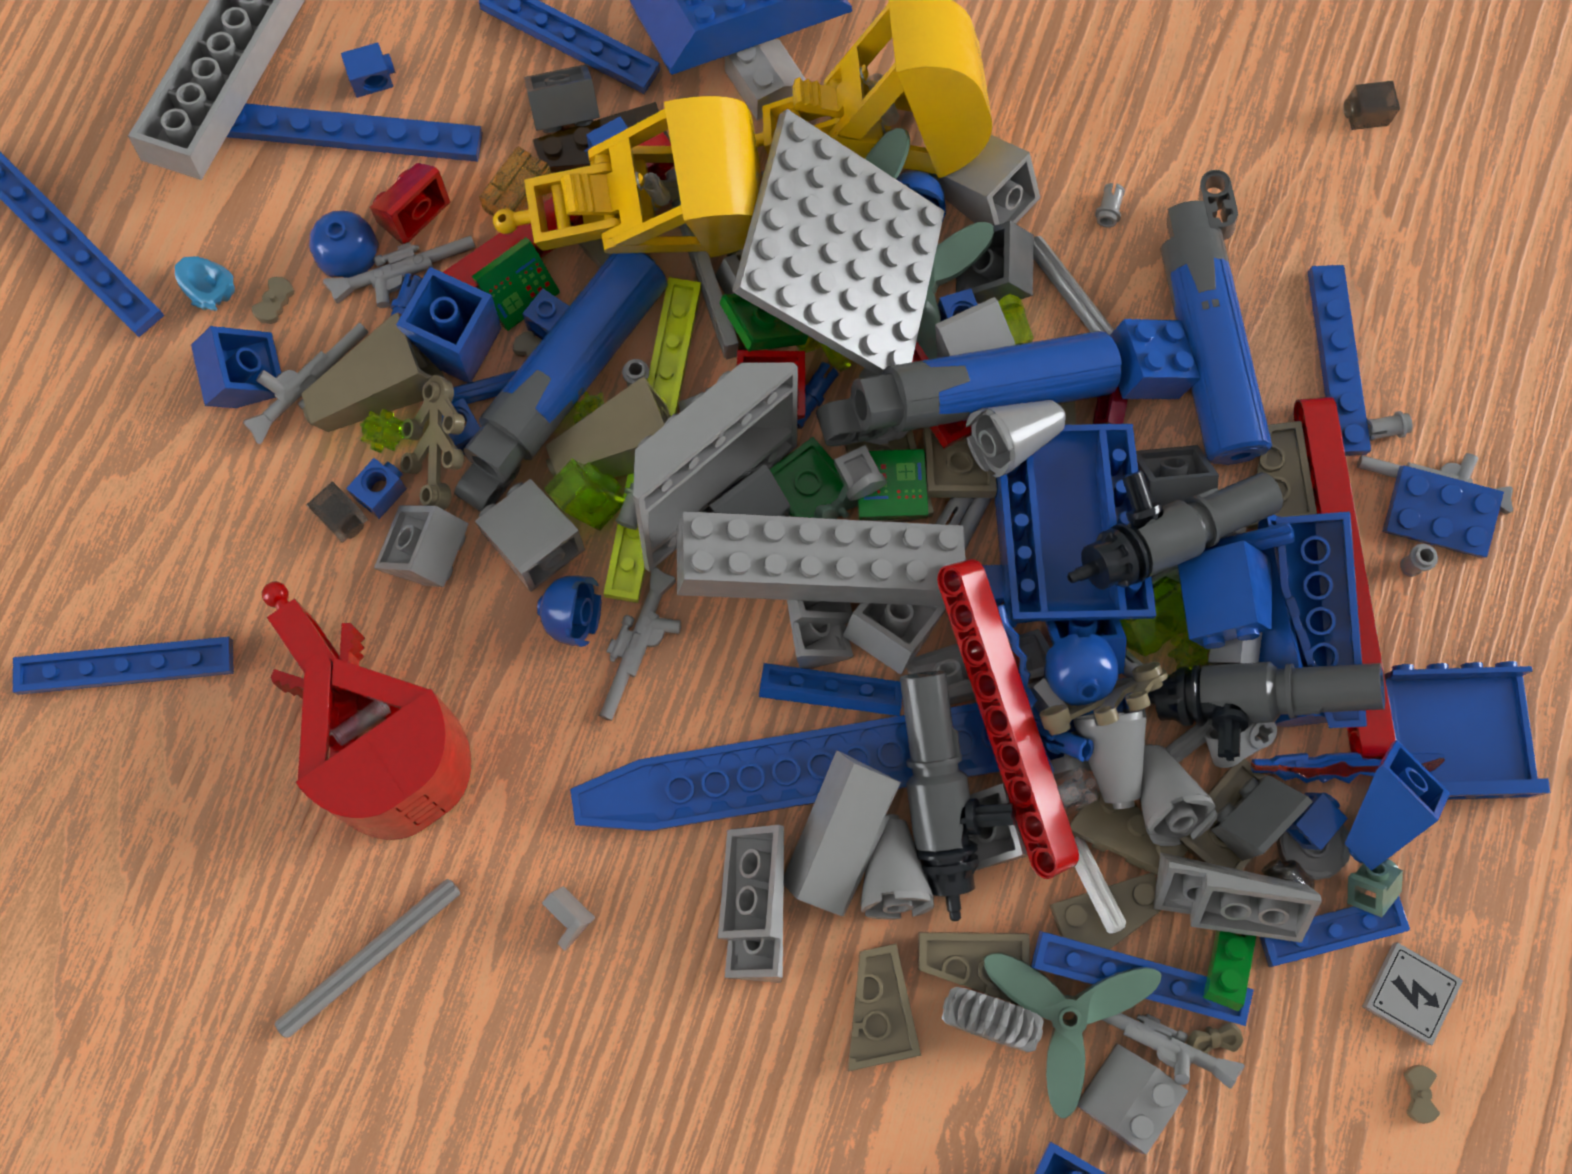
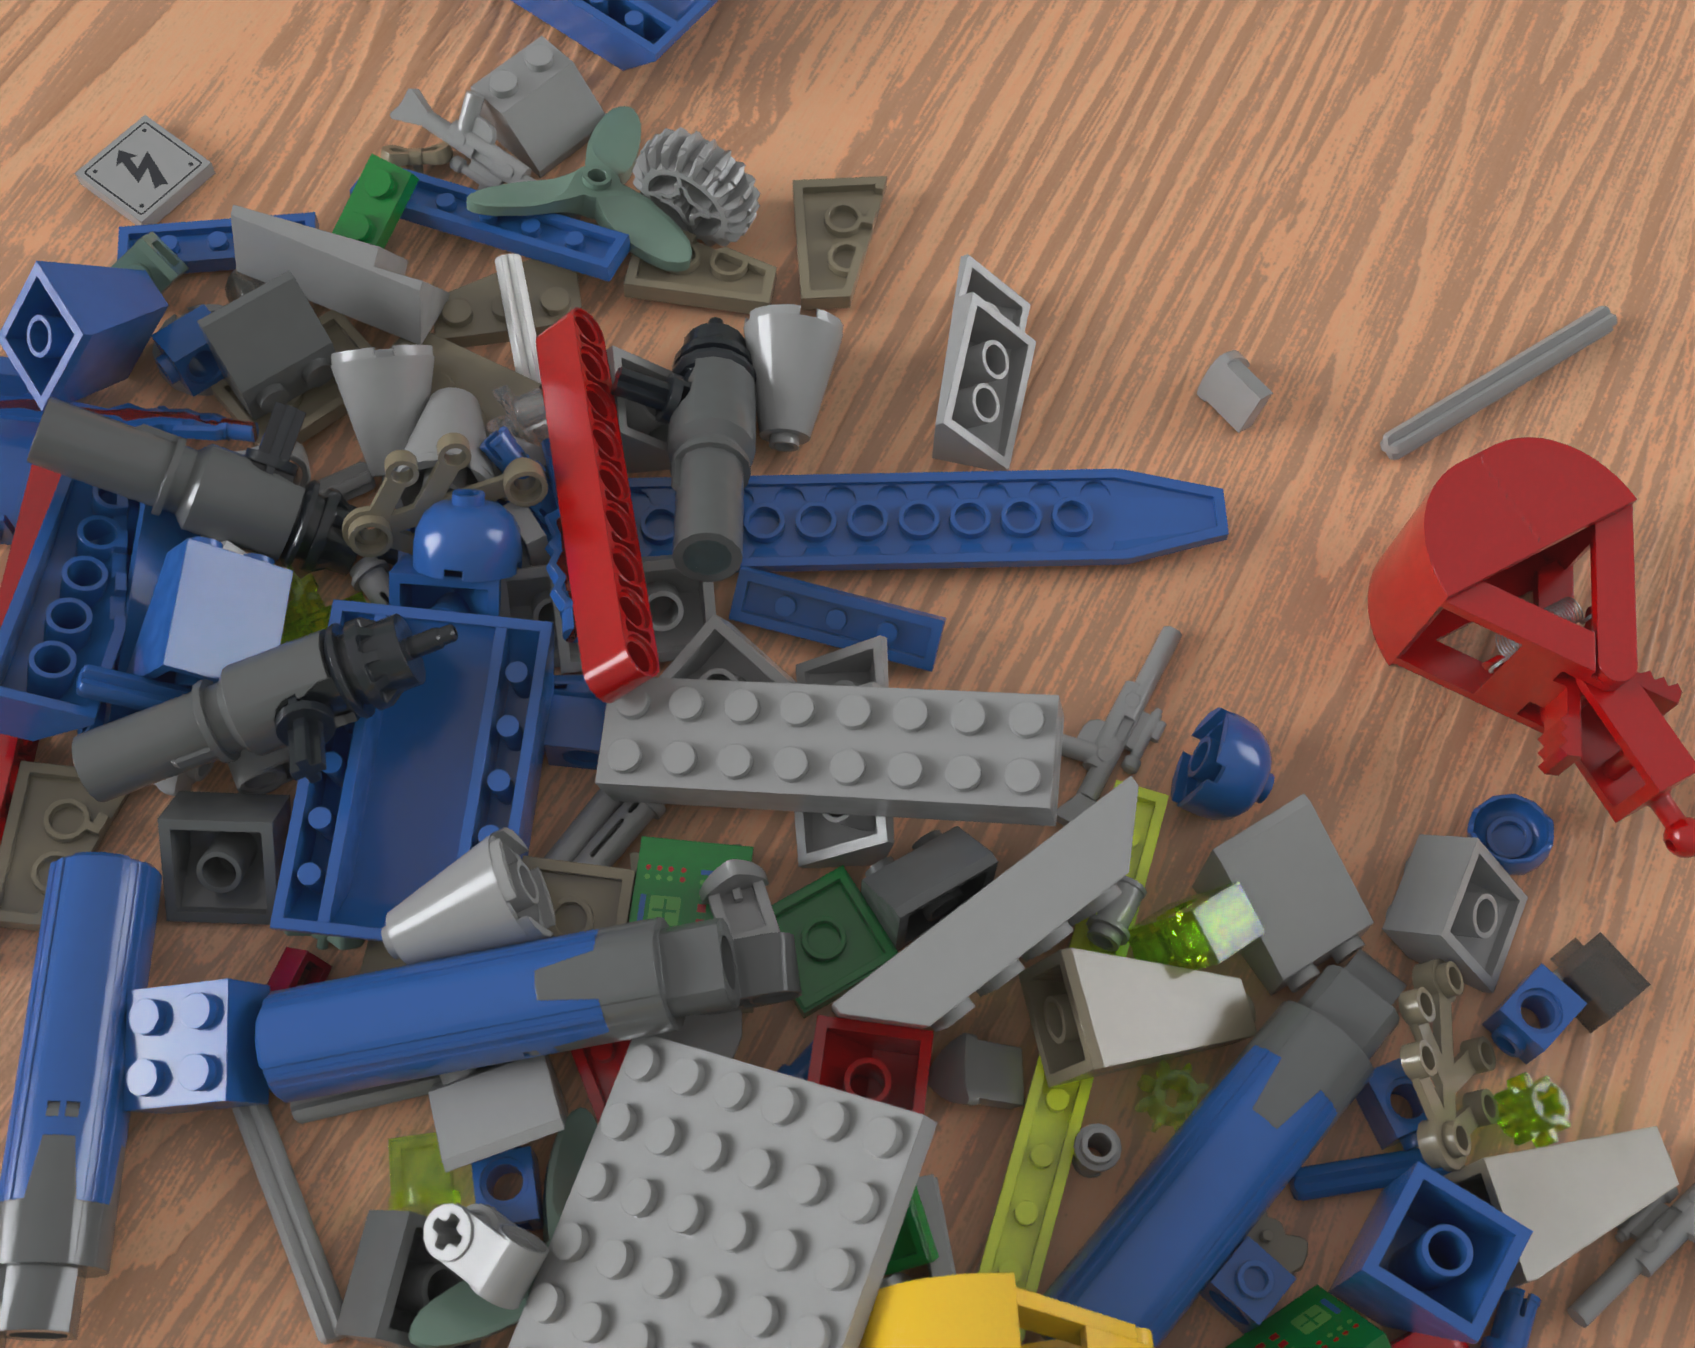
camera: 170 degrees left, 10 degrees down
(384, 596) = (1513, 832): none -> blue hair
(836, 508) = (794, 880): sand green piece -> none
(840, 834) = (860, 412): light grey slope -> none
(961, 266) = (485, 1251): none -> light grey piece
(1421, 1107) = (175, 89): dark tan piece -> none

